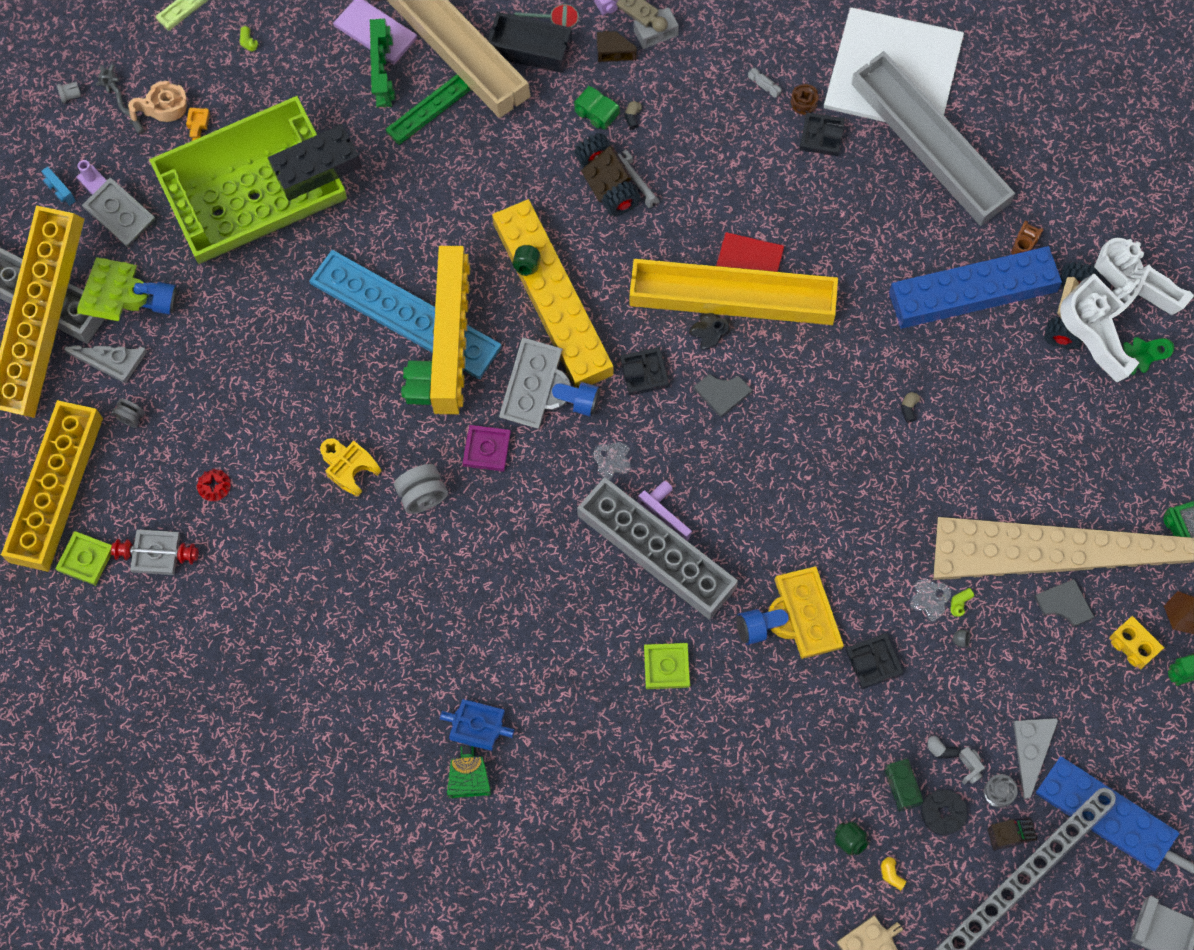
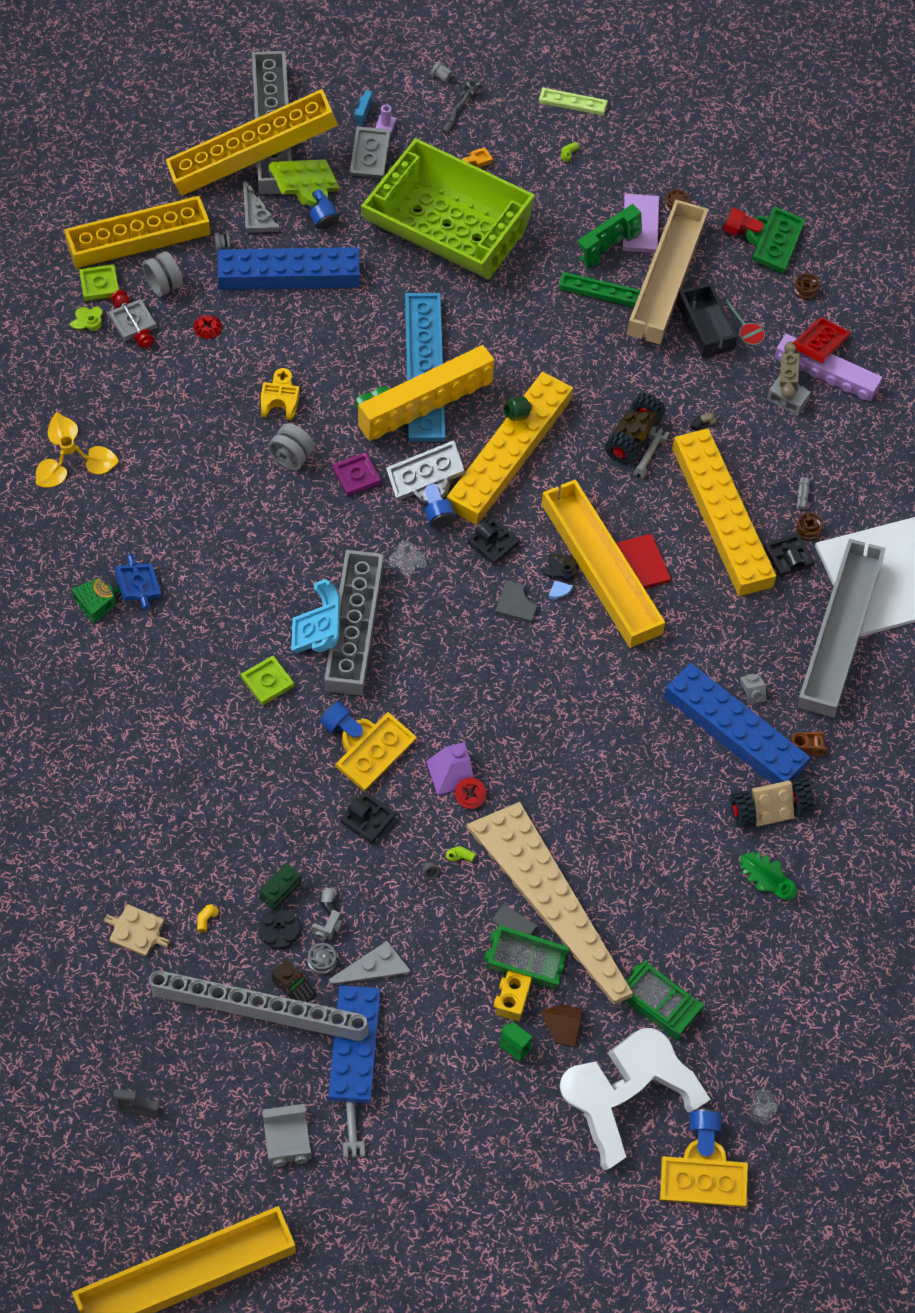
camera: 50 degrees right, 10 degrees down
(117, 595) = (87, 318): none -> lime plate
(125, 490) = (162, 274): none -> light grey wheel
(164, 102) = (475, 130): light nougat piece -> none
(202, 369) = (288, 268): none -> blue brick
(284, 737) = (63, 432): none -> yellow plant
(315, 162) = (486, 231): black piece -> none
(596, 107) = (688, 393): green brick -> none
(614, 47) = (748, 376): dark brown slope -> none
(644, 581) = (318, 627): none -> medium azure piece
(652, 504) = (387, 602): lavender piece -> none
(733, 346) = (560, 590): none -> light blue tile
(743, 158) = (723, 512): none -> yellow brick
(851, 838) = (214, 872): dark green head -> none
(868, 557) = (449, 768): none -> medium lavender slope
(904, 545) = (468, 784): none -> red gear
(907, 406) = (605, 732): arm -> none
(927, 599) = (446, 829): clear plate -> none
(941, 248) = (754, 688): none -> light grey bracket
(1092, 305) = (775, 809): white animal -> none
(1105, 609) = (526, 956): none -> door

